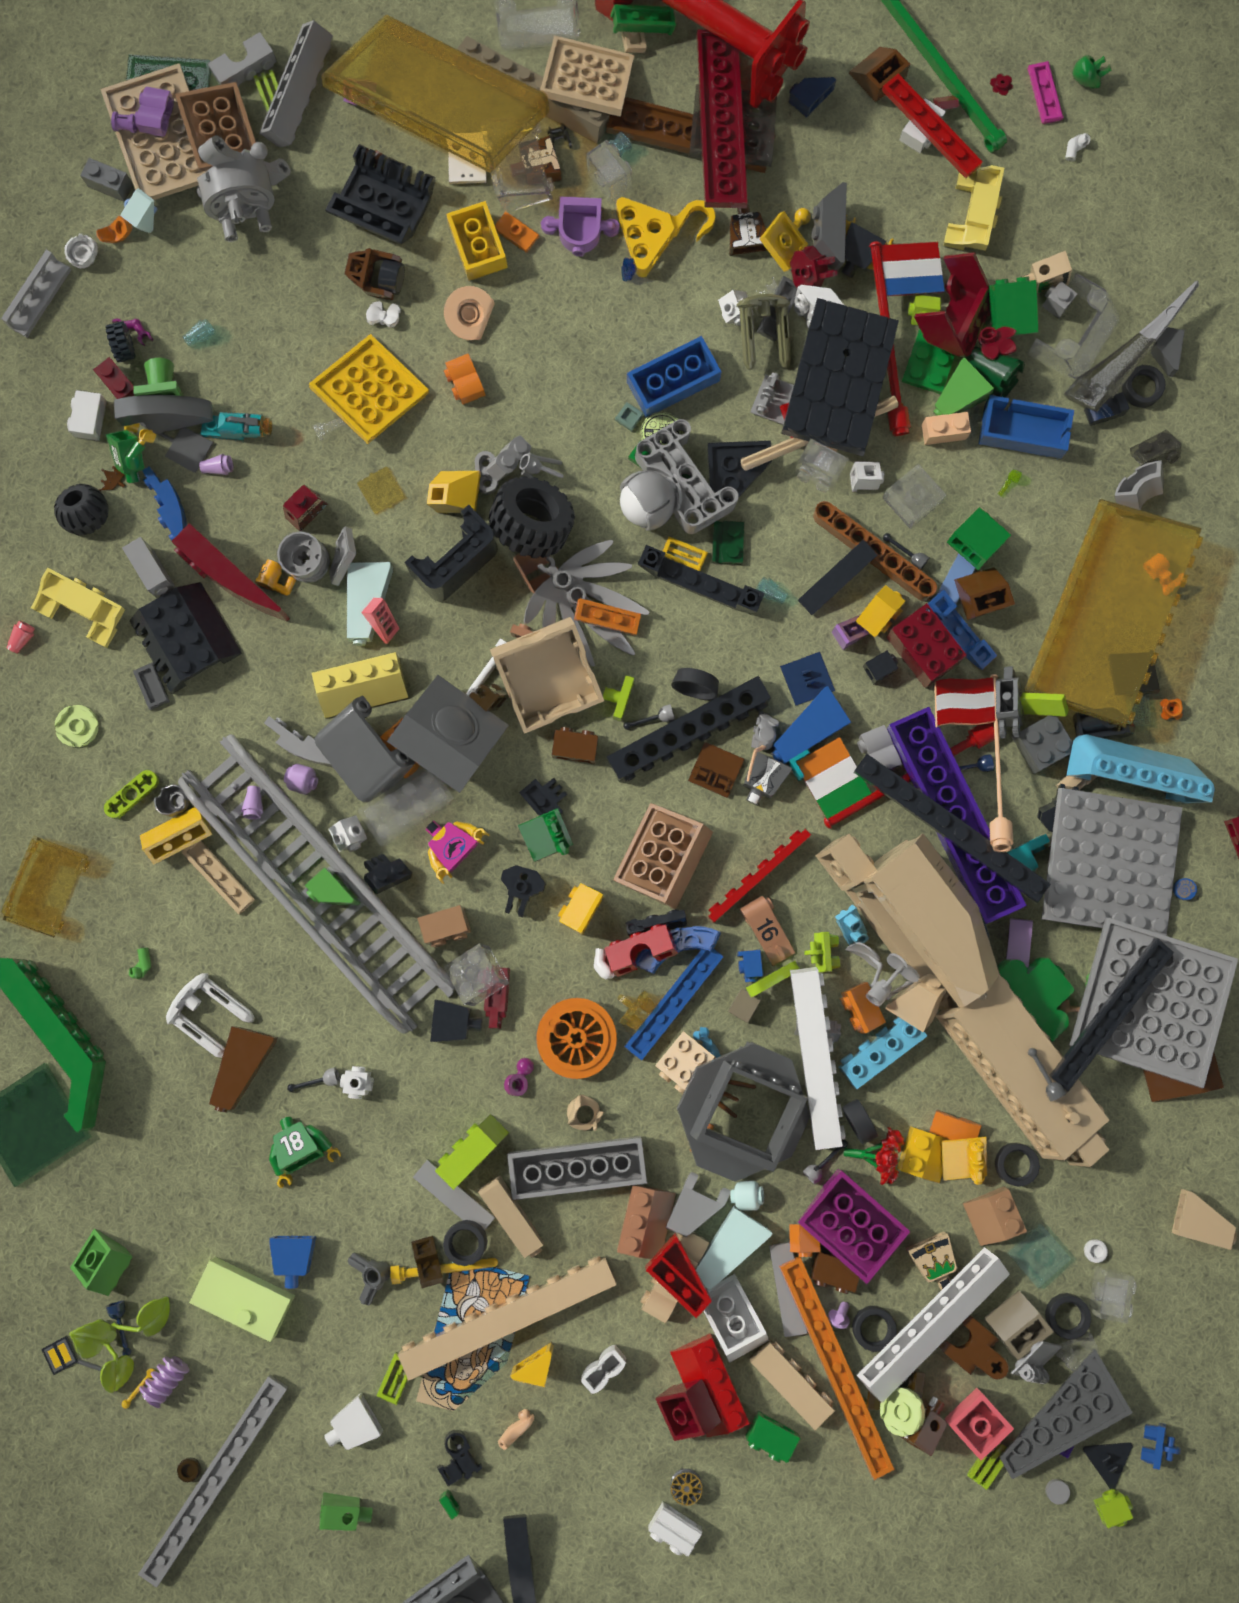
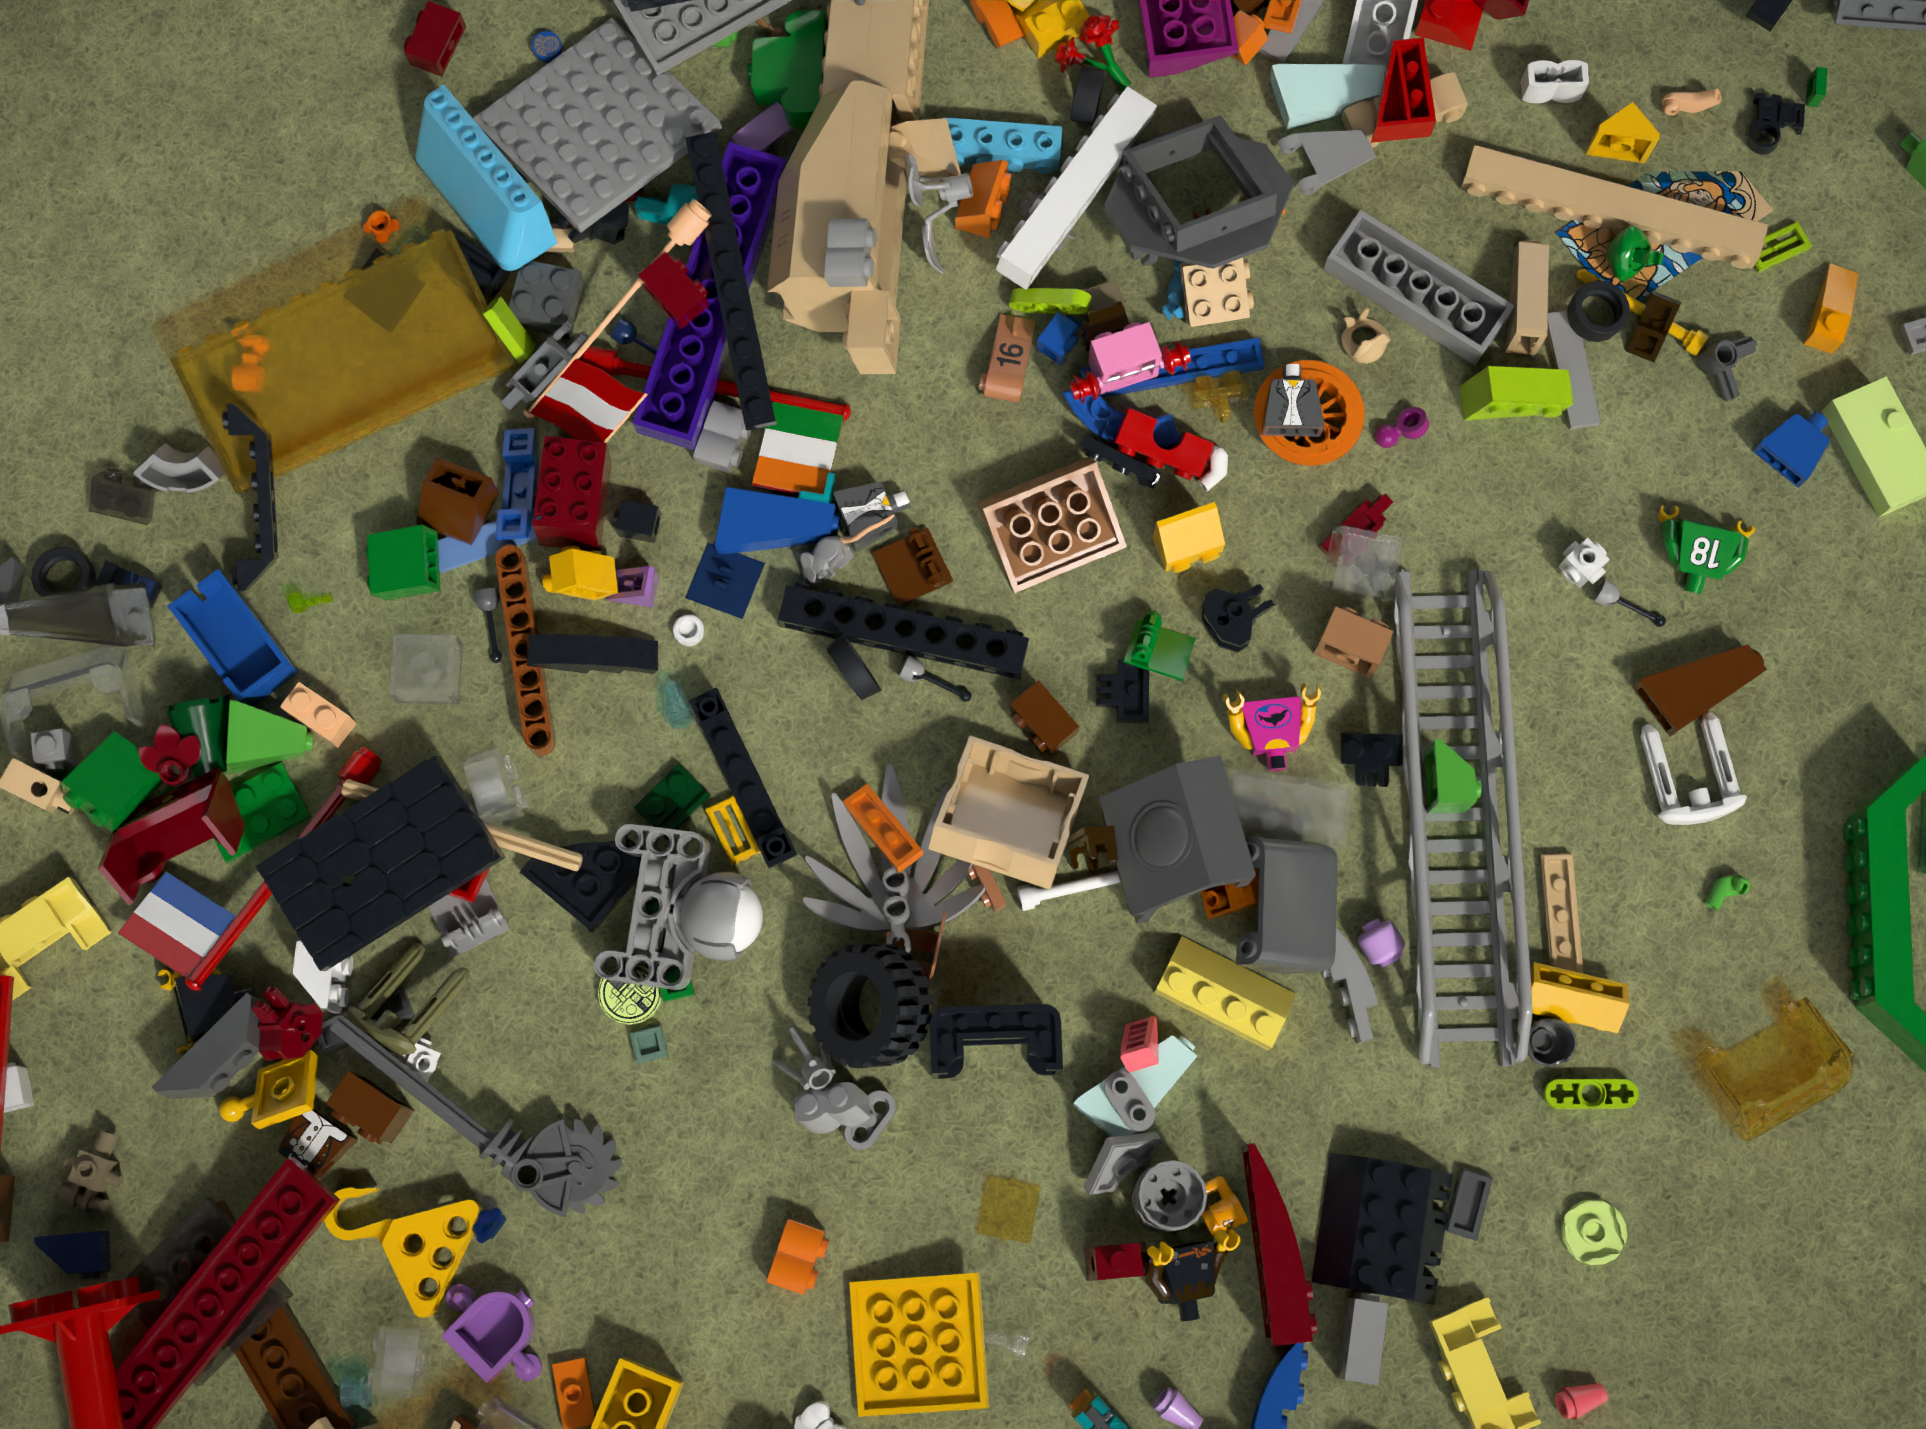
camera: 140 degrees left, 5 degrees down
(252, 804) = (1458, 960): lavender cone -> none
(265, 530) = (1187, 1271): none -> torso
(334, 1365) = (1832, 309): none -> light orange slope
(348, 834) = (1378, 833): white brick -> none
(354, 1425) = (1857, 235): white torso -> none
(361, 584) = (1128, 1101): none -> light grey plate
(452, 1022) = (1428, 540): black torso -> none
(454, 491) = (925, 1126): yellow slope -> none
(468, 312) = (722, 1335): light nougat hat -> none
(474, 1295) = (1631, 253): none -> green piece
(587, 1030) = (1293, 406): none -> dark grey torso
(617, 326) = (568, 1162): none -> dark grey piece
(619, 697) = (947, 729): lime tile -> none
(645, 1221) = (1394, 182): nougat slope -> none
(673, 376) = (558, 1040): blue brick -> none
(700, 975) = (1126, 360): none -> bright pink brick
(728, 987) = (1104, 319): none -> dark brown brick
(734, 267) = (369, 1107): none -> reddish brown brick
(747, 1195) = (1264, 122): light aqua head -> none
(750, 880) = (956, 418): red plate -> none
(801, 635) = (688, 630): none -> white tile
(814, 1172) = (1175, 92): hinge -> none
(821, 951) = (973, 289): lime hips -> none
(839, 131) = (91, 1171): none -> dark tan piece
(852, 925) = (919, 287): medium azure hips -> none
(866, 476) = (443, 740): white brick -> none
(892, 878) = (849, 252): none -> light grey brick
(923, 304) = (209, 868): lime brick -> none
(974, 792) = (674, 290): none -> dark red brick
(1128, 529) = (240, 423): none -> black slope

